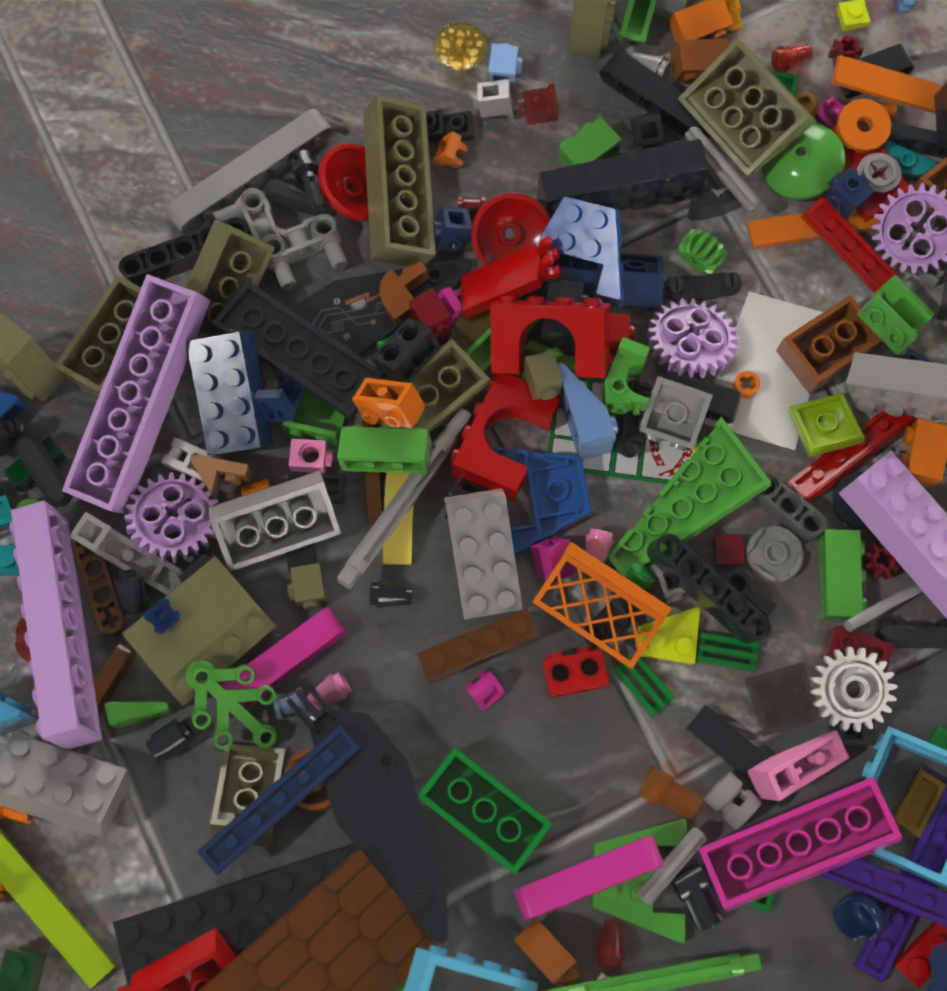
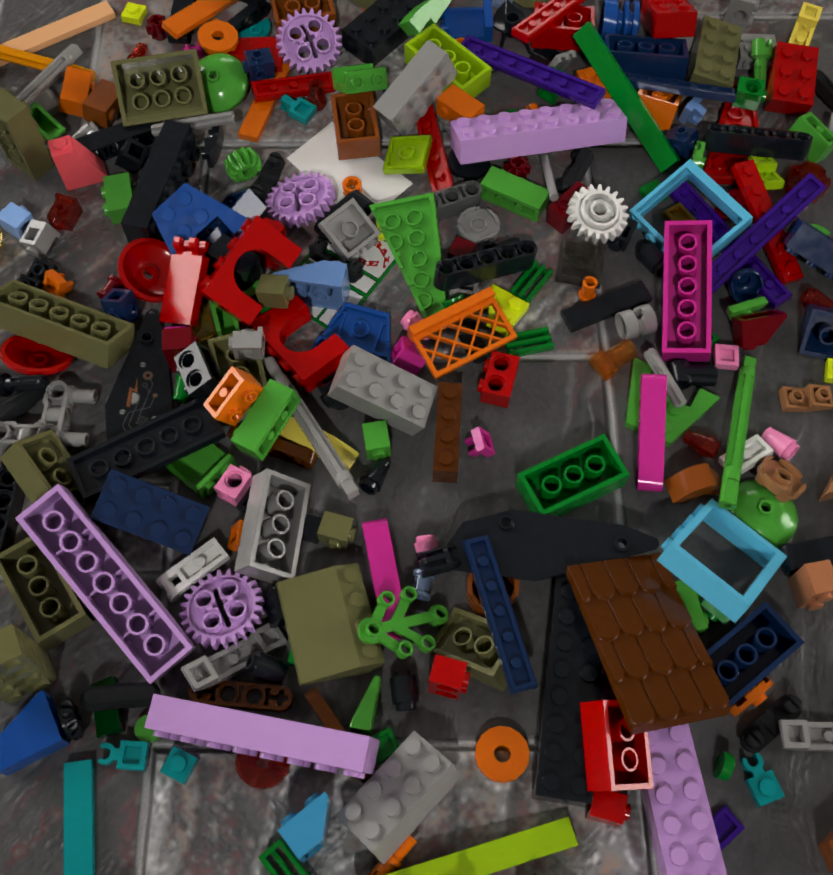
camera: 65 degrees left, 10 degrees down
(111, 746) = (387, 745): none -> green tile
(132, 867) = (511, 740): none -> orange tile
(153, 616) = (312, 645): clear blue plate -> none
(195, 778) = (448, 677): none -> red brick
(213, 471) = (204, 556): medium nougat slope -> none
(279, 403) = (179, 479): dark blue bracket -> none
(396, 290) = (146, 365): dark orange brick -> none
(431, 575) = (376, 440): none -> bright green brick
(461, 383) = (248, 344): none -> light grey brick
(602, 81) = (76, 163): none -> coral slope
(627, 363) = (295, 230): bright green tile -> none
(743, 729) = (588, 288): none -> orange pin
(745, 930) = (726, 356): none -> bright pink plate
(797, 766) = (633, 274): bright pink slope -> none
(803, 954) = (756, 328): none -> dark red slope
(821, 270) = (298, 109): none -> teal plate
(824, 930) = (746, 307): none -> bright green plate
(838, 779) = (651, 257): none -> black brick
(849, 279) = (316, 94): none -> clear red cone
(880, 162) = (262, 39): light grey gear -> none

